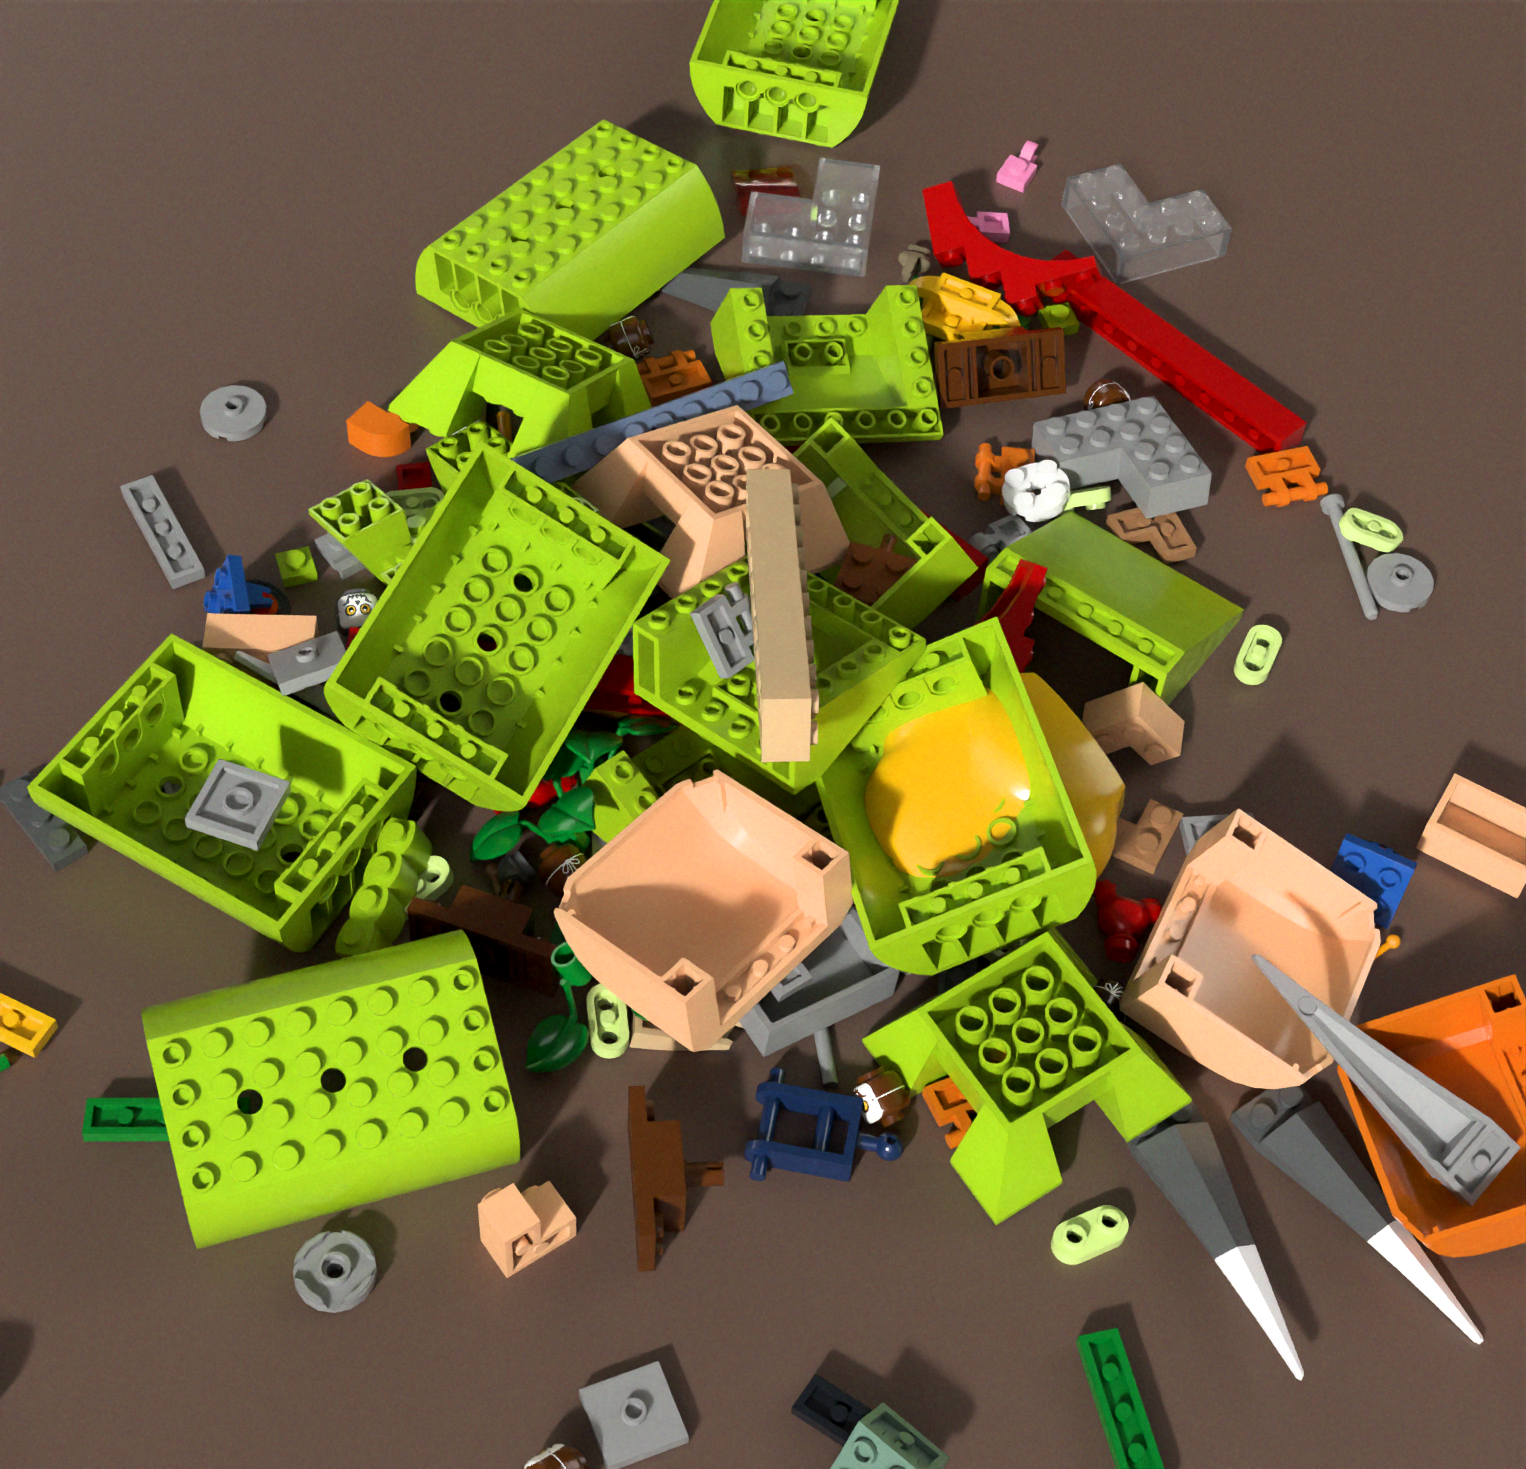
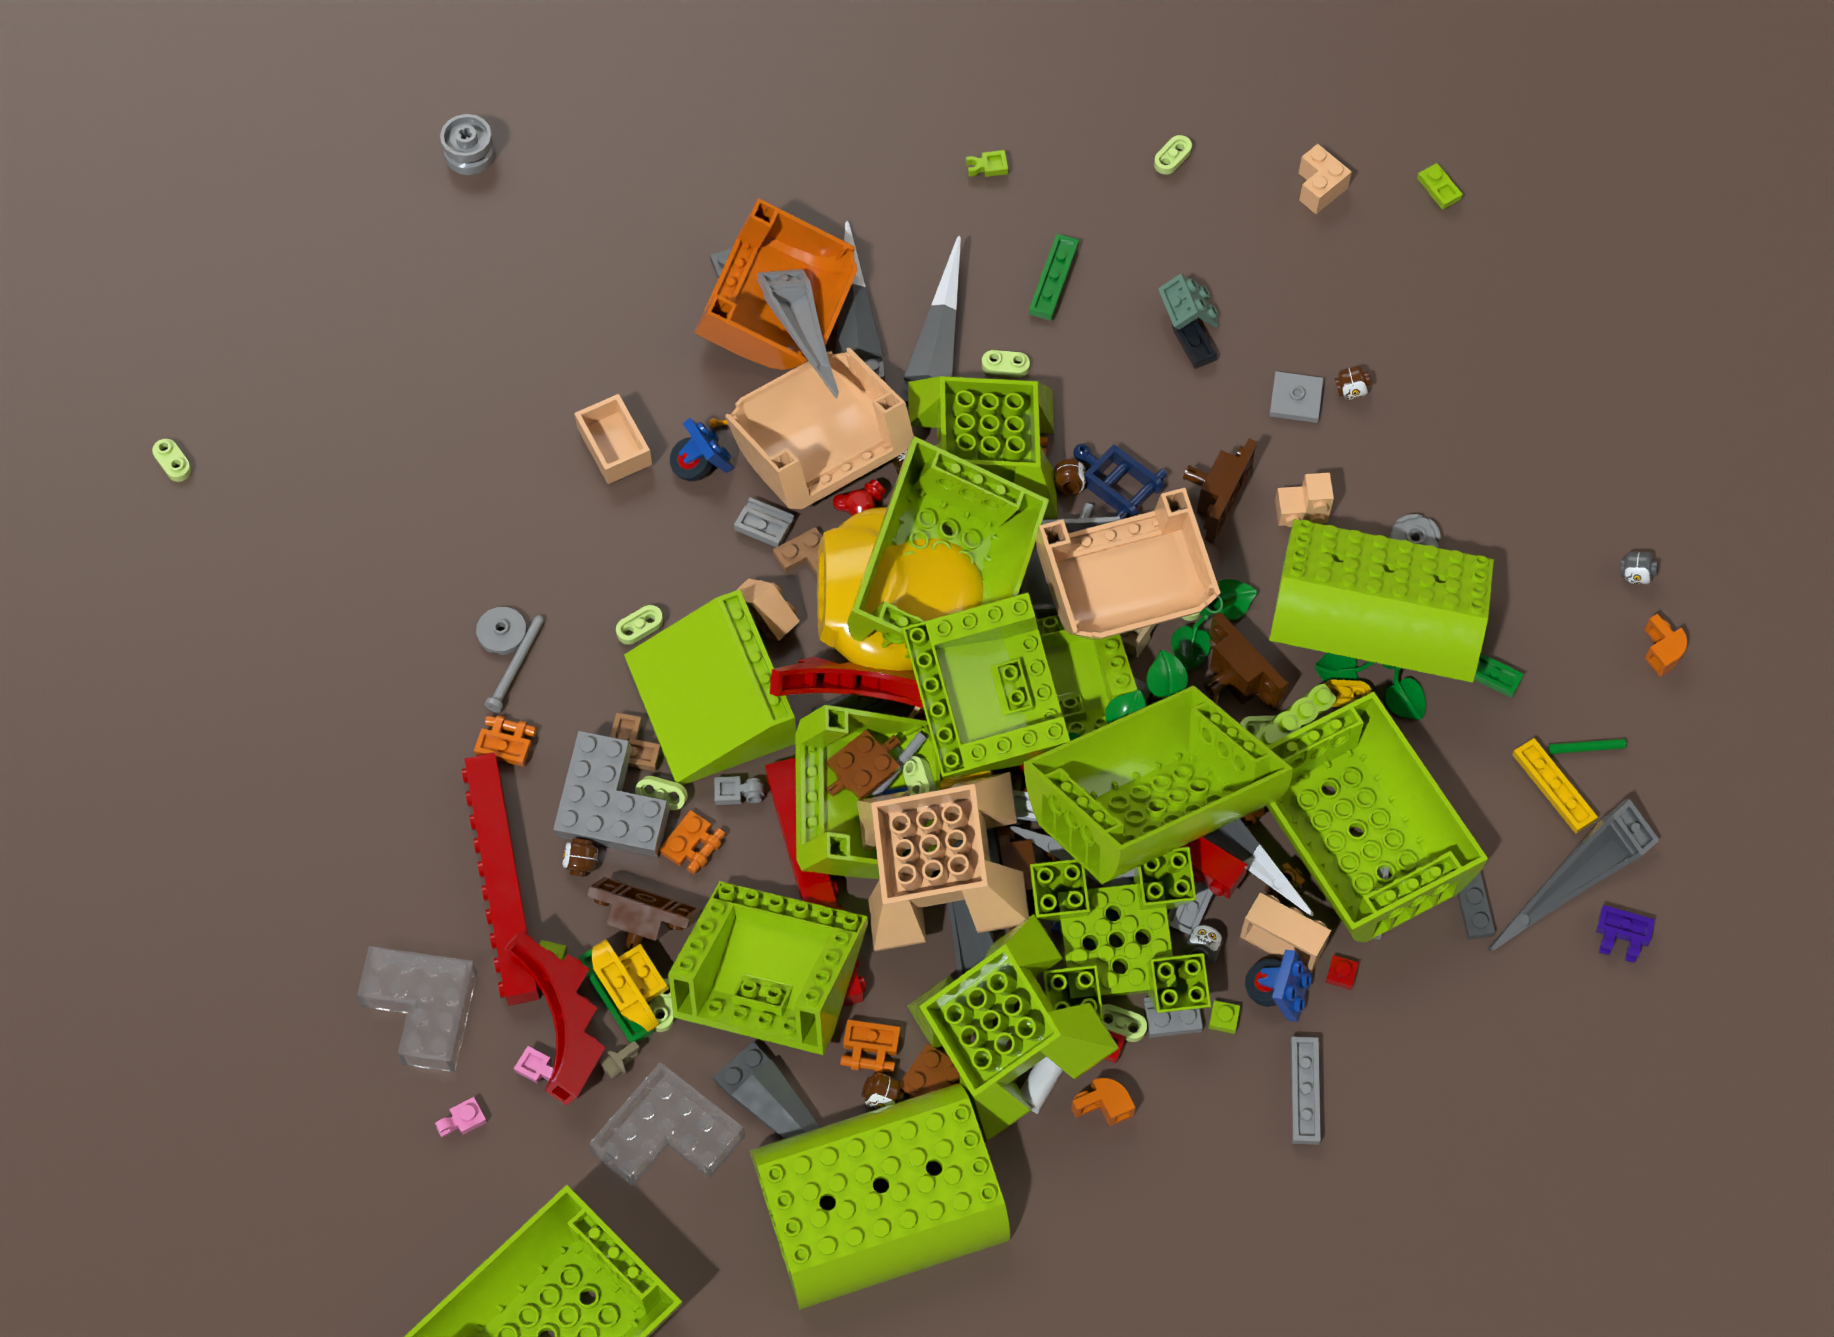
camera: 145 degrees left, 10 degrees up
(233, 413) = (1202, 1194): light grey plate -> none
(238, 804) = (1365, 774): light grey plate -> none
(306, 662) = (1271, 867): light grey plate -> none
(589, 447) = (957, 923): sand blue plate -> none
(721, 632) = (1012, 711): light grey plate -> none
(764, 180) = (679, 1197): clear red slope -> none
(780, 617) = (992, 664): tan brick -> none
(1044, 476) = (700, 811): white plate -> none
(1370, 530) = (491, 665): yellowish green plate -> none

